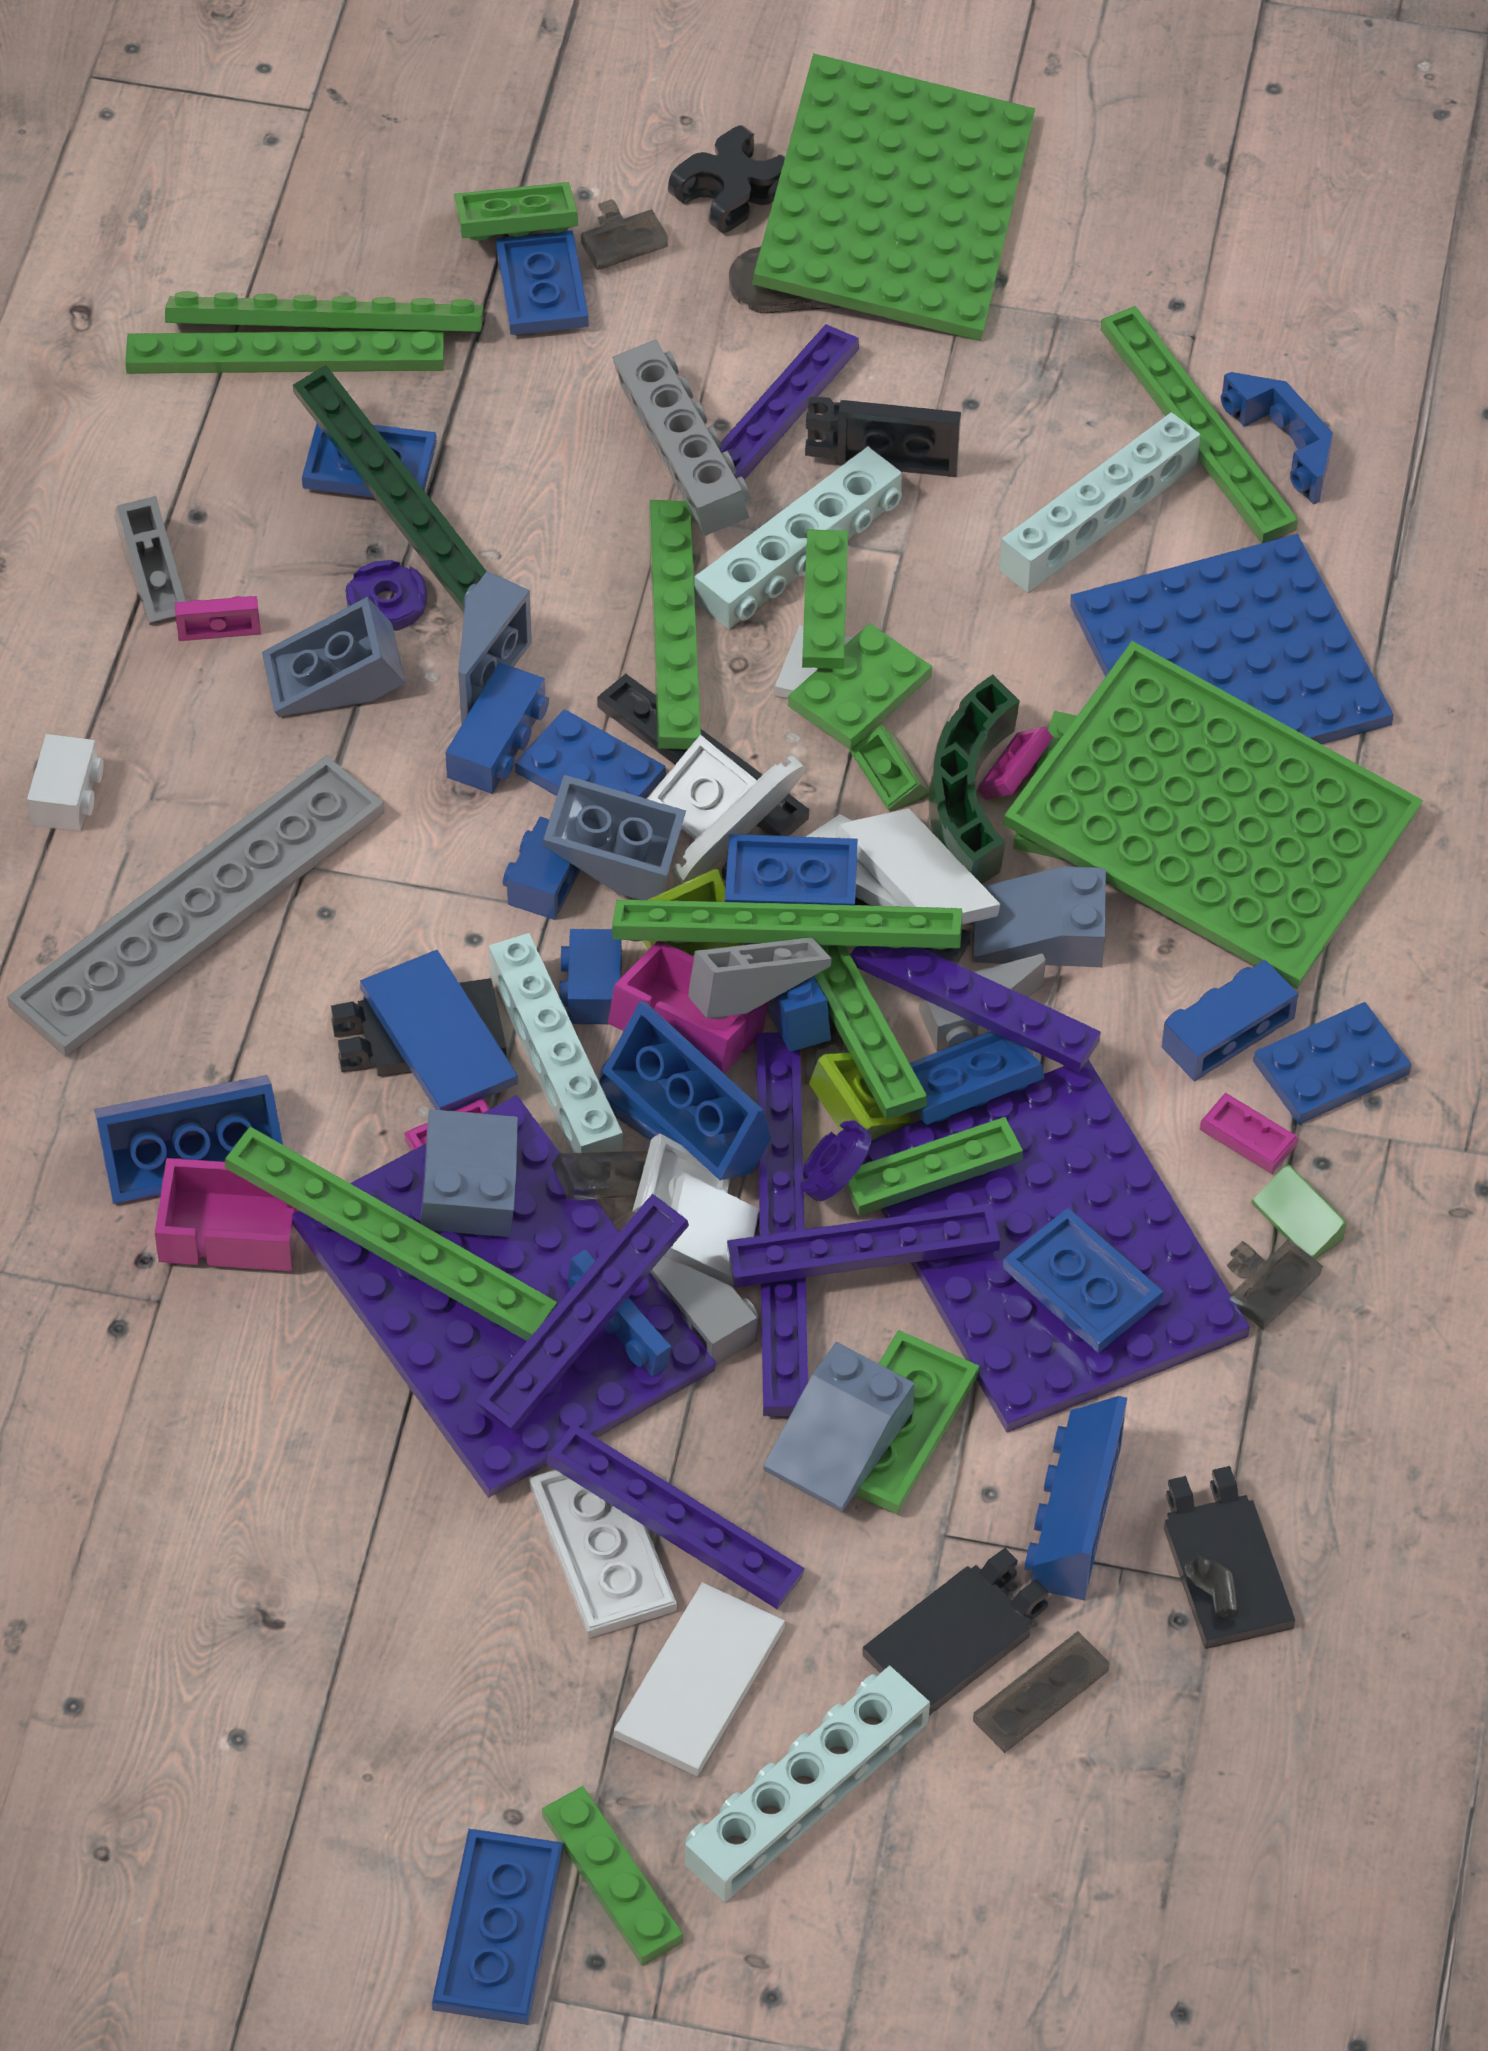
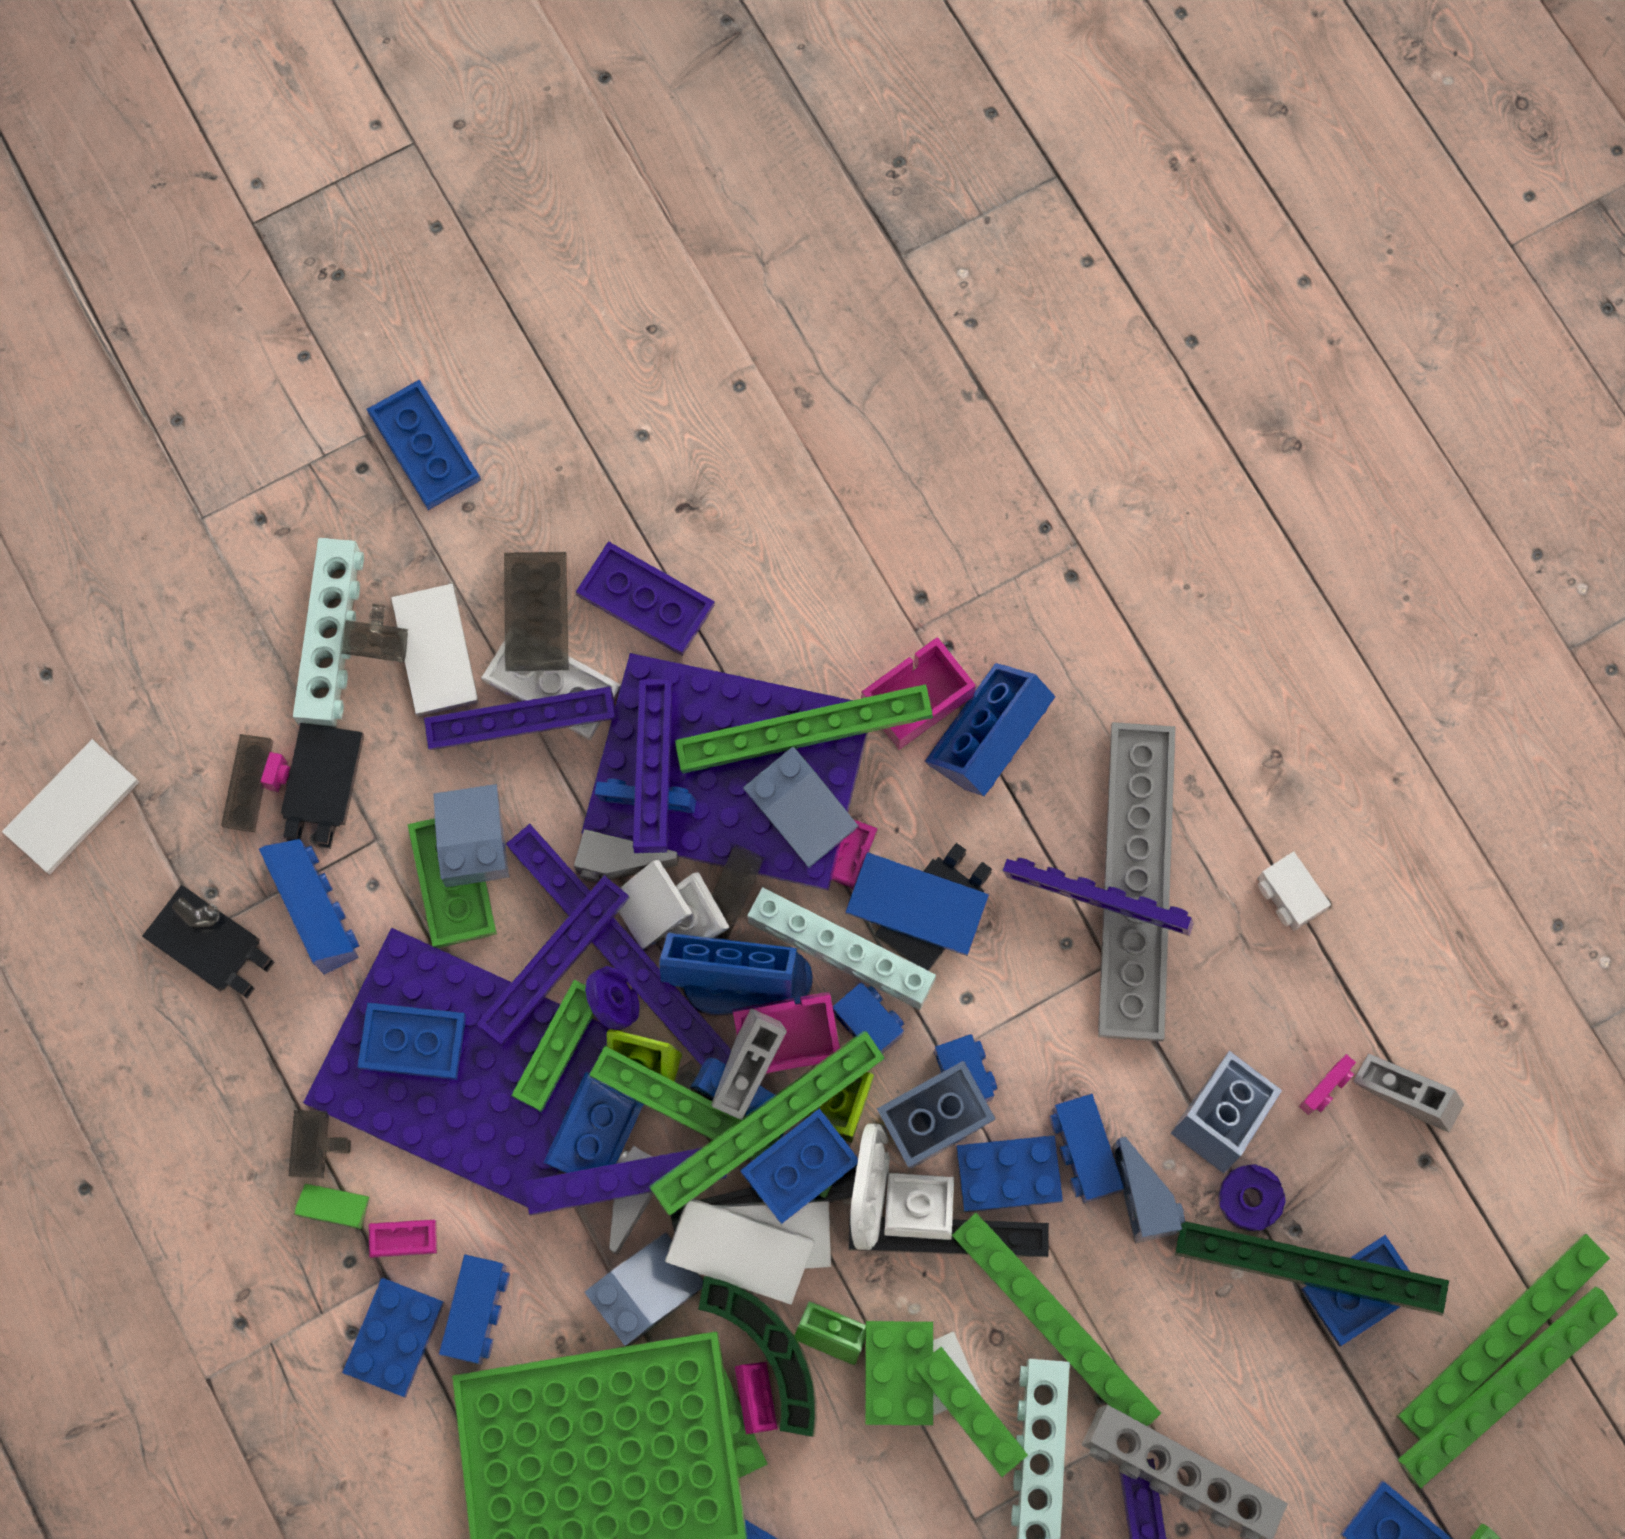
camera: 140 degrees right, 20 degrees up
(262, 910) = (1110, 899): none -> dark purple plate
(414, 1545) = (645, 598): none -> dark purple plate
(549, 1616) = (536, 611): none -> clear smoke plate
(612, 1875) = (389, 513): bright green plate -> none
(758, 1715) = (374, 638): none -> clear smoke plate
(999, 1672) = (275, 772): none -> dark pink plate
(1269, 1828) = (70, 806): none -> white tile

